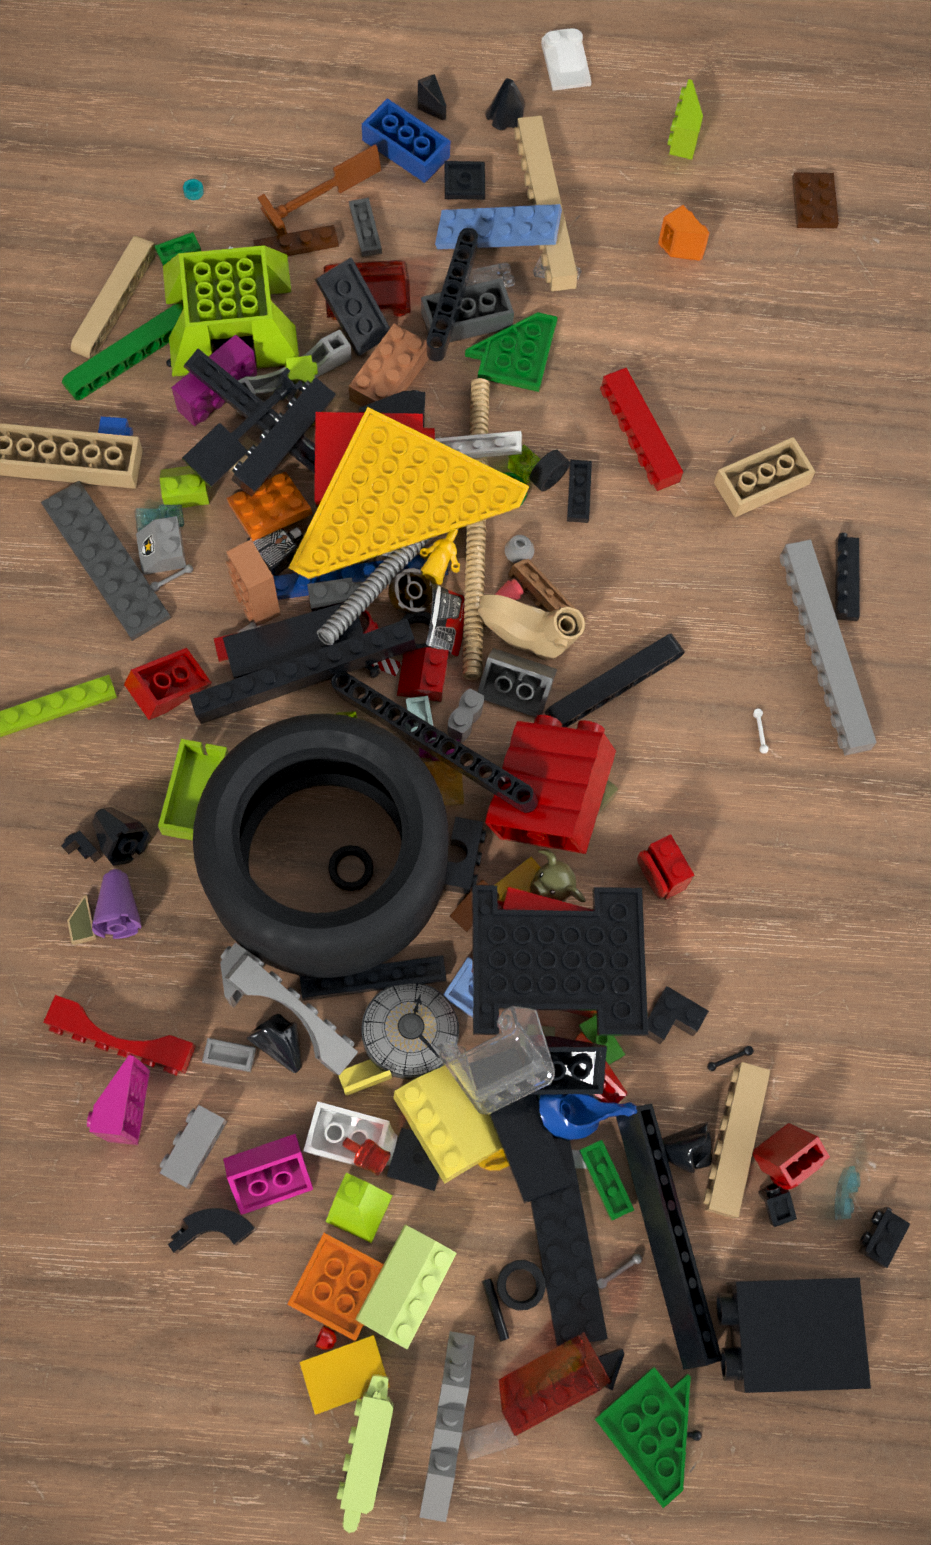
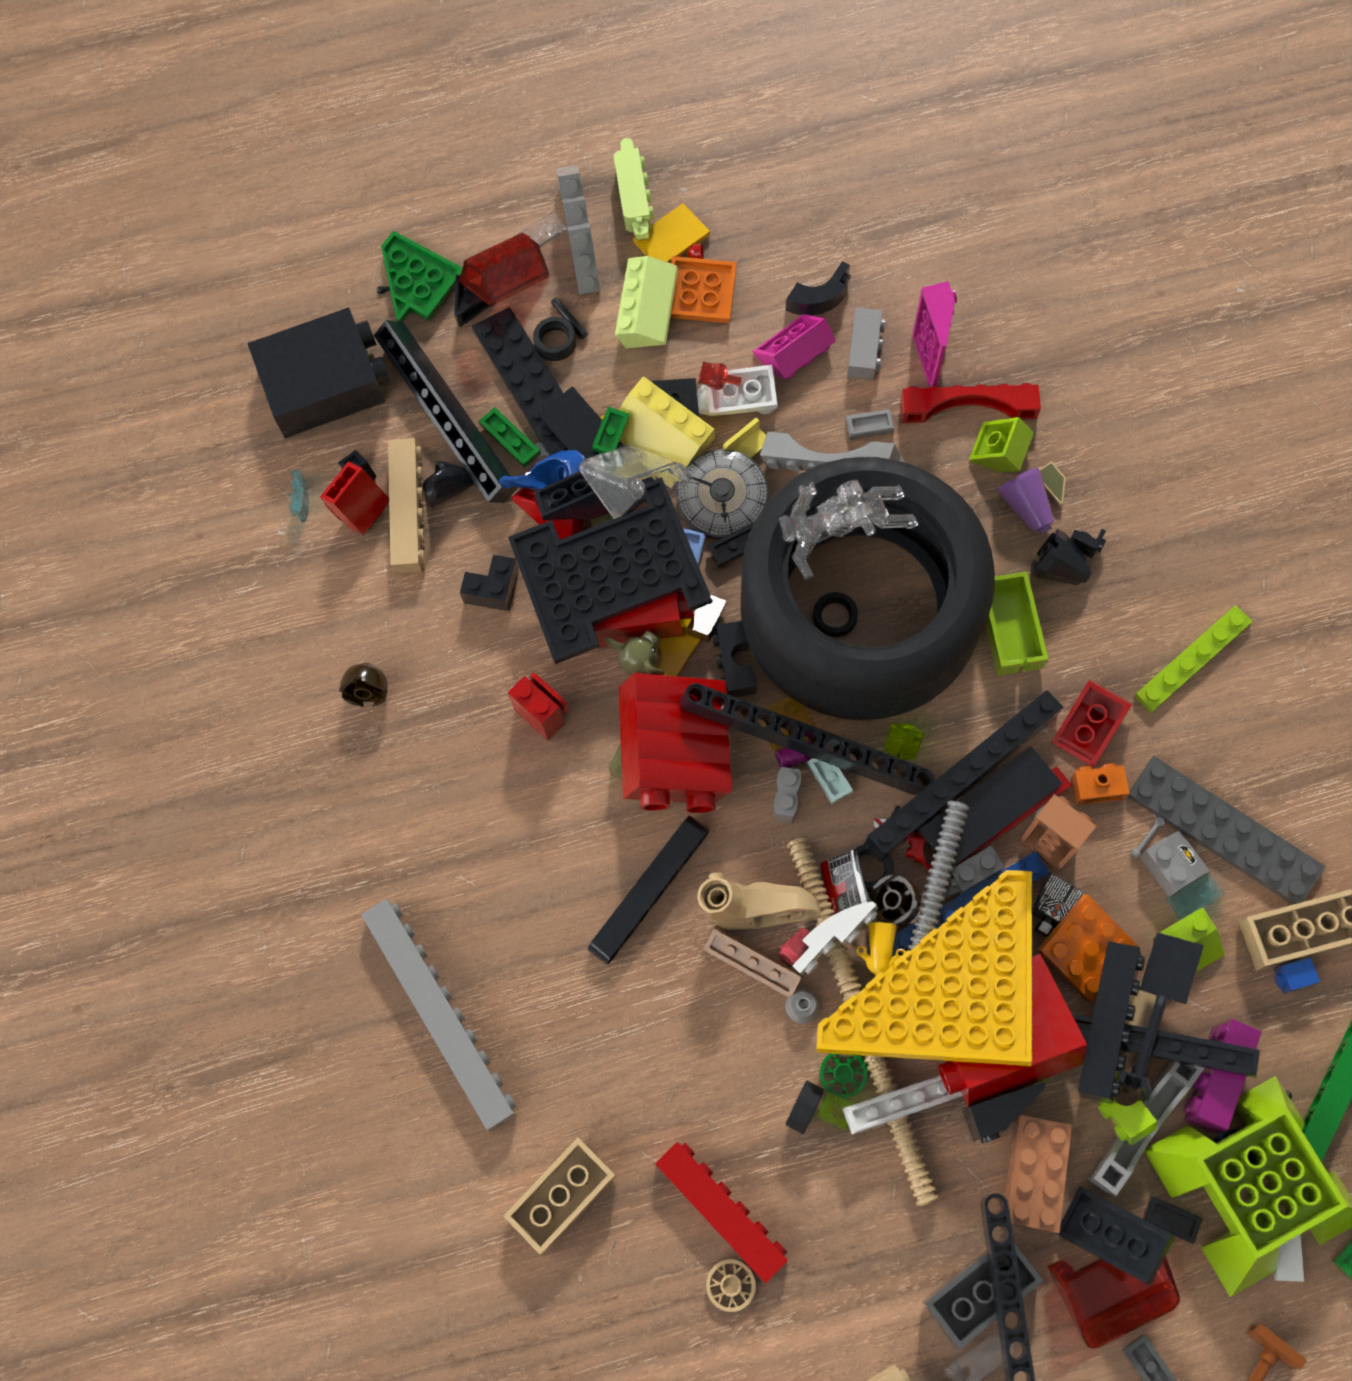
camera: 170 degrees right, 0 degrees up
(112, 977) = (1002, 445): none -> lime slope
(190, 628) = (1099, 784): none -> orange brick
(280, 1041) = (832, 440): black hat -> none
(302, 241) = (1229, 1322): reddish brown plate -> none
(302, 315) = (1172, 1219): none -> black tile
(331, 853) = (838, 516): none -> clear piece
(358, 1207) = (708, 347): lime slope -> none
(423, 673) = (844, 823): red slope -> none
(468, 583) = (840, 926): none -> white slope
(502, 1131) = (610, 430): none -> green plate
(516, 682) = (749, 851): dark grey slope -> none
(517, 353) = (900, 1264): green wing -> none
(579, 491) = (763, 1102): black plate -> none
(636, 1259) = (488, 366): light grey hinge -> none
(651, 382) = (730, 1285): none -> tan wheel
(748, 1050) = (415, 585): black hinge -> none
(757, 714) = (492, 914): white hinge -> none
(824, 959) = (364, 684): none -> dark brown cylinder
(847, 578) = (435, 1109): black hinge -> none
(883, 1237) = (259, 476): black bracket -> none

